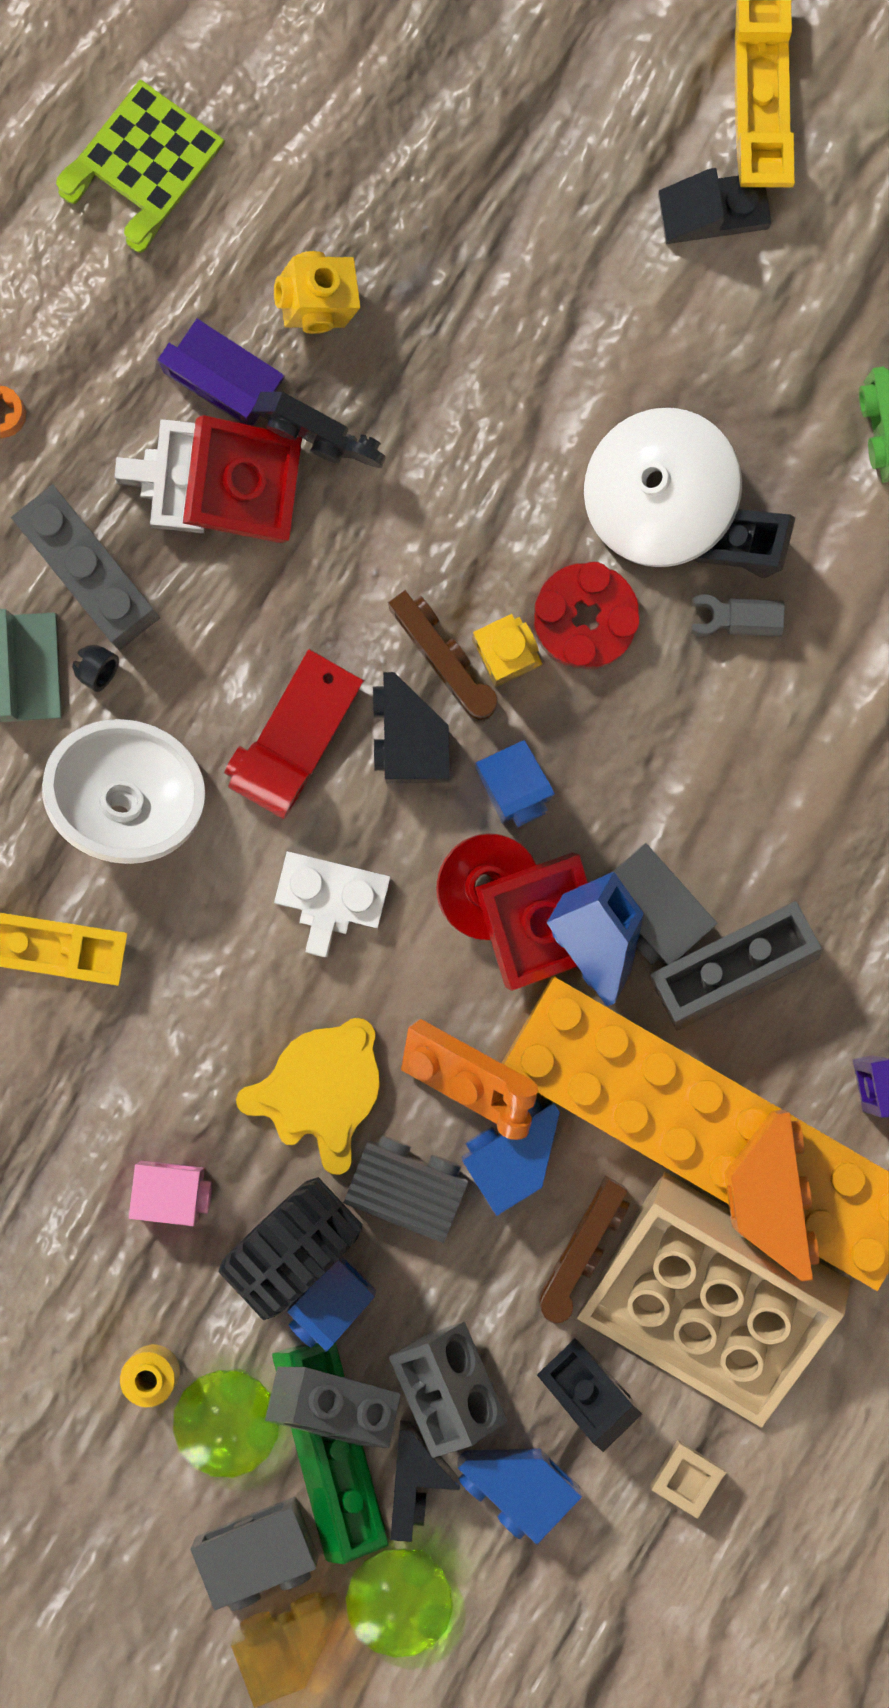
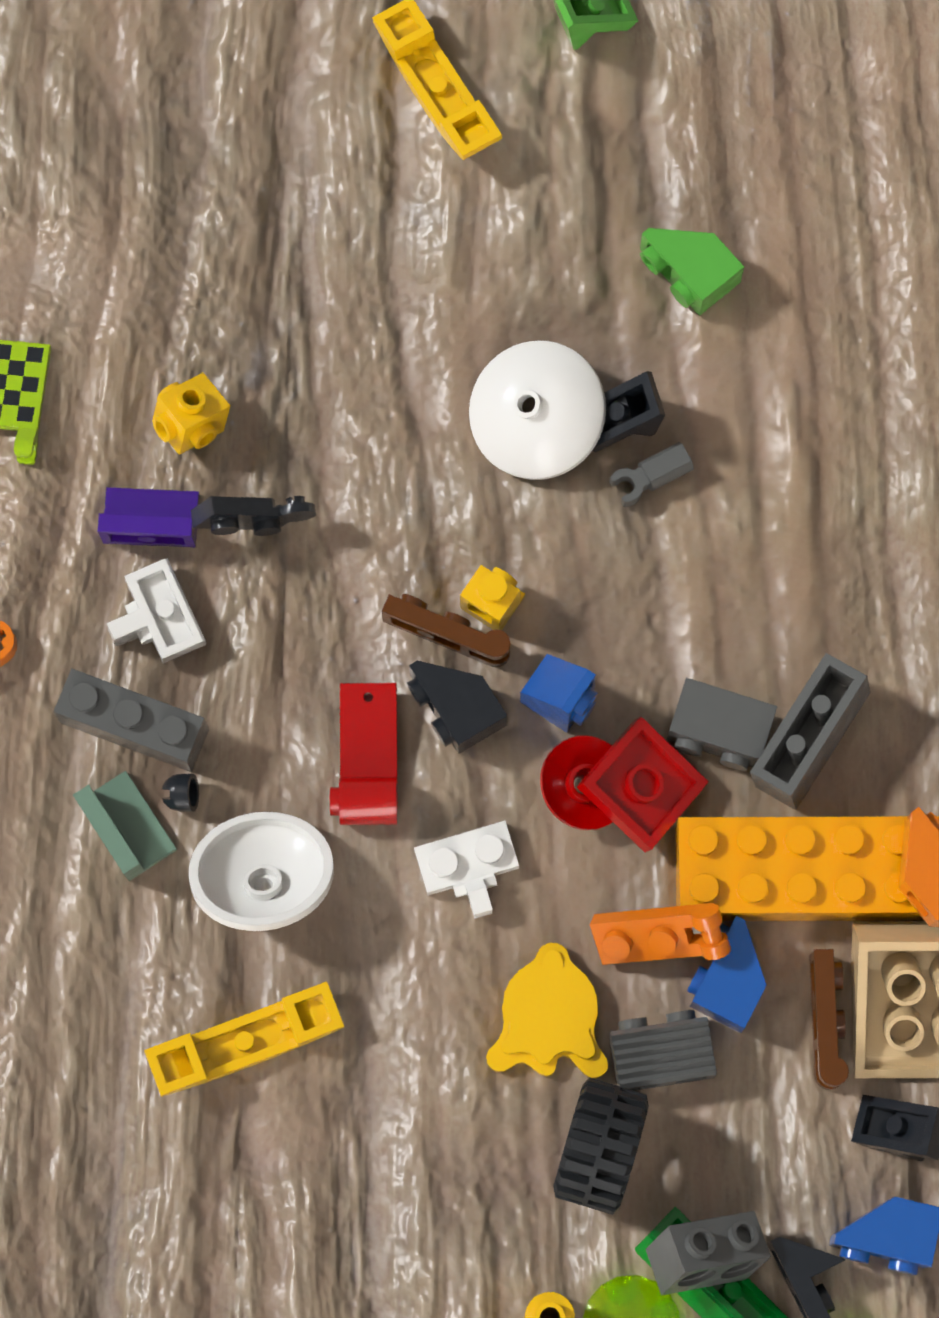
camera: 25 degrees left, 10 degrees down
(169, 1193) = (479, 1165): bright pink brick -> none
(241, 480) = (214, 585): red plate -> none
(330, 1305) = (657, 1174): blue slope -> none
(448, 1389) = (789, 1188): dark grey brick -> none
(591, 585) = (533, 512): red plate -> none
(600, 933) = (693, 762): slope -> none
(711, 208) = (449, 188): black slope -> none

